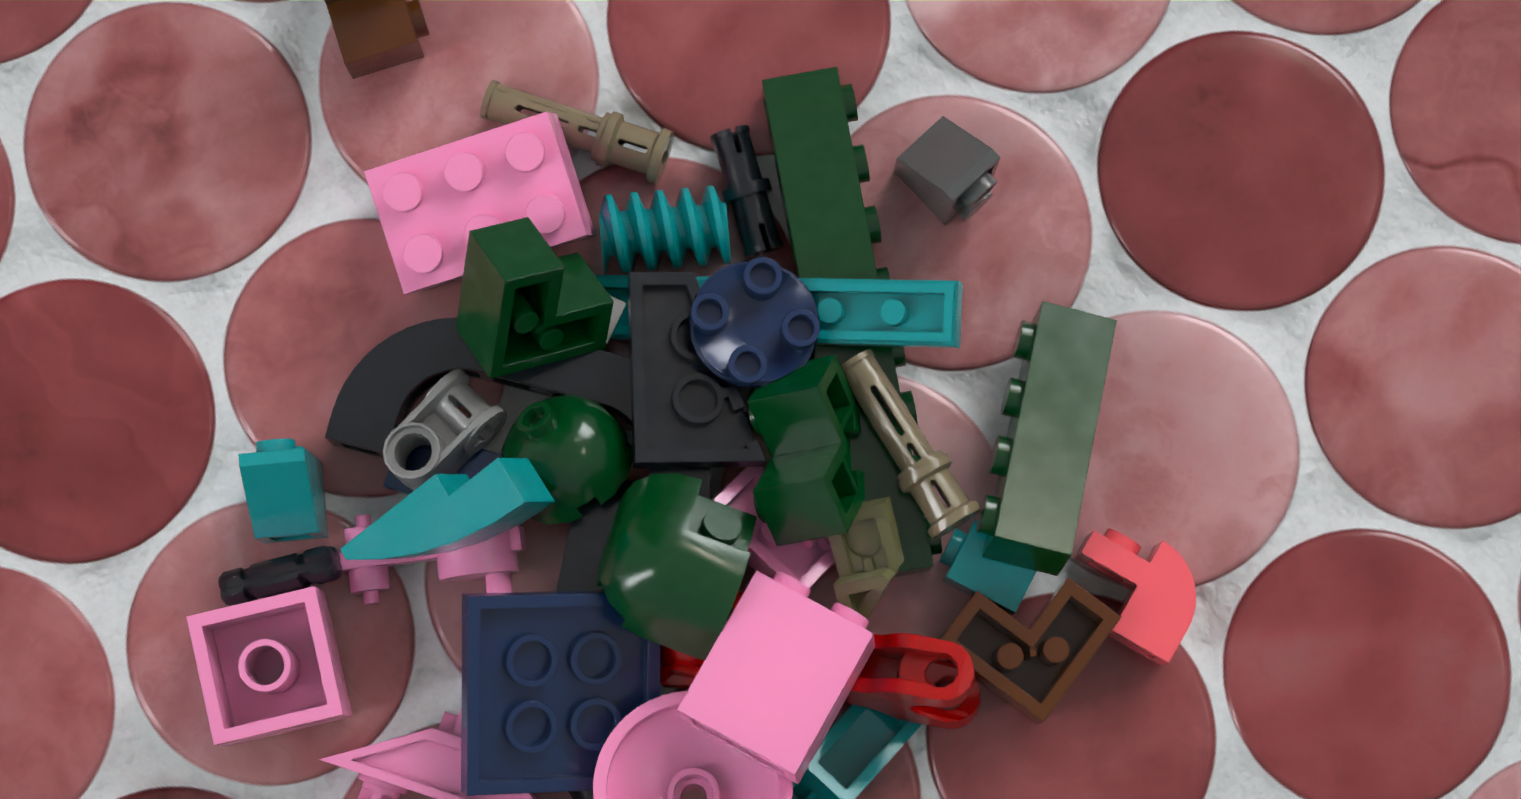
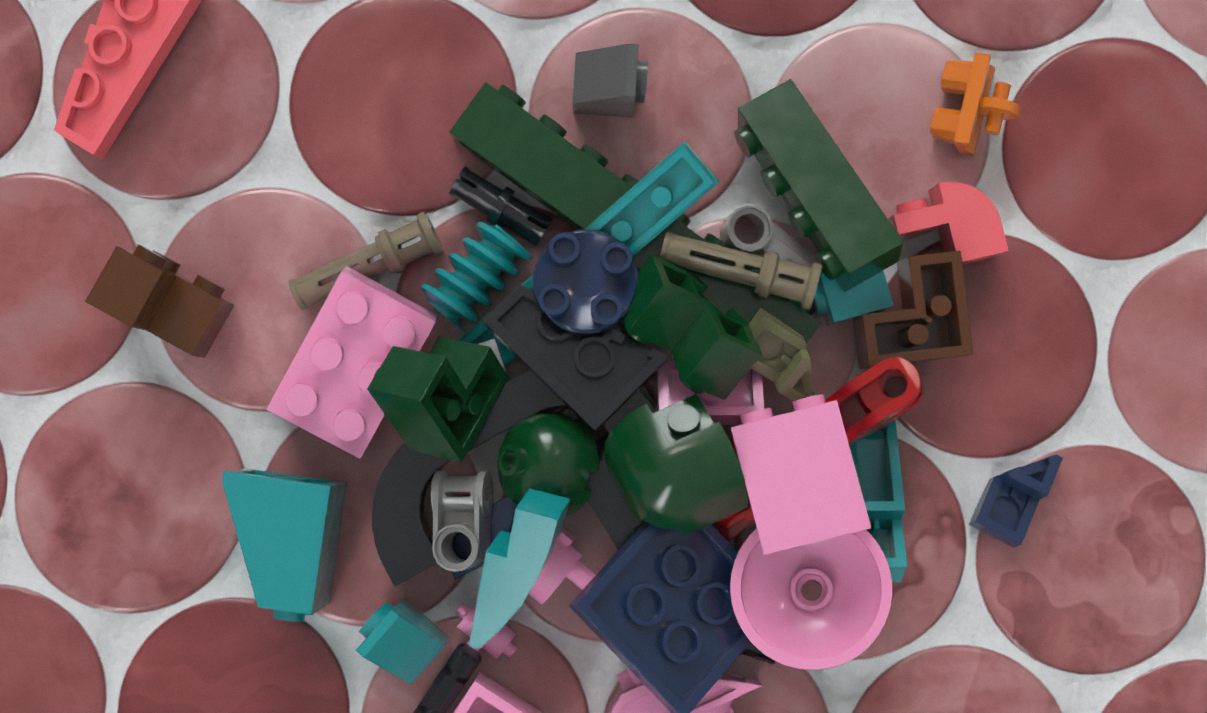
camera: 45 degrees left, 5 degrees up
(273, 305) = (287, 537): none -> teal slope
(964, 449) = (768, 239): none -> light grey piece
(1273, 509) = (974, 82): none -> orange hips

